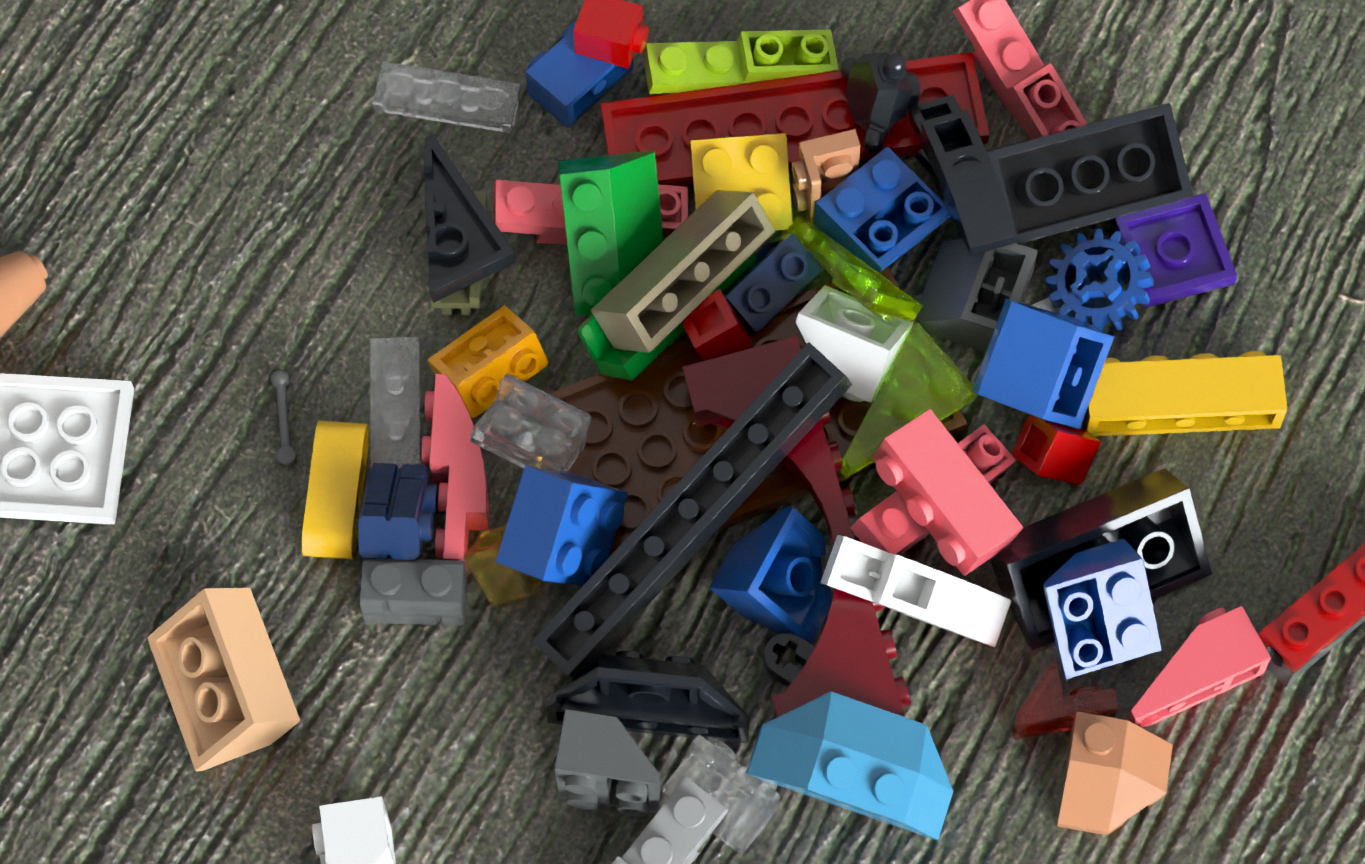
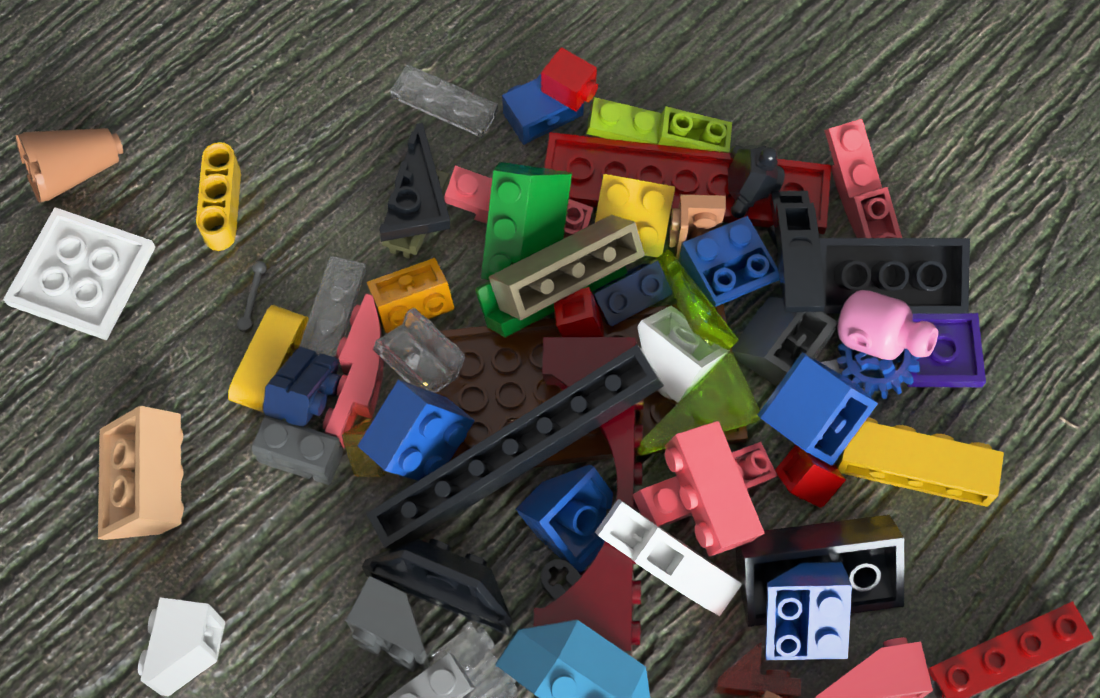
camera: 15 degrees right, 0 degrees up
(204, 319) = (223, 210): none -> yellow beam
(1095, 241) = (883, 327): none -> bright pink piece

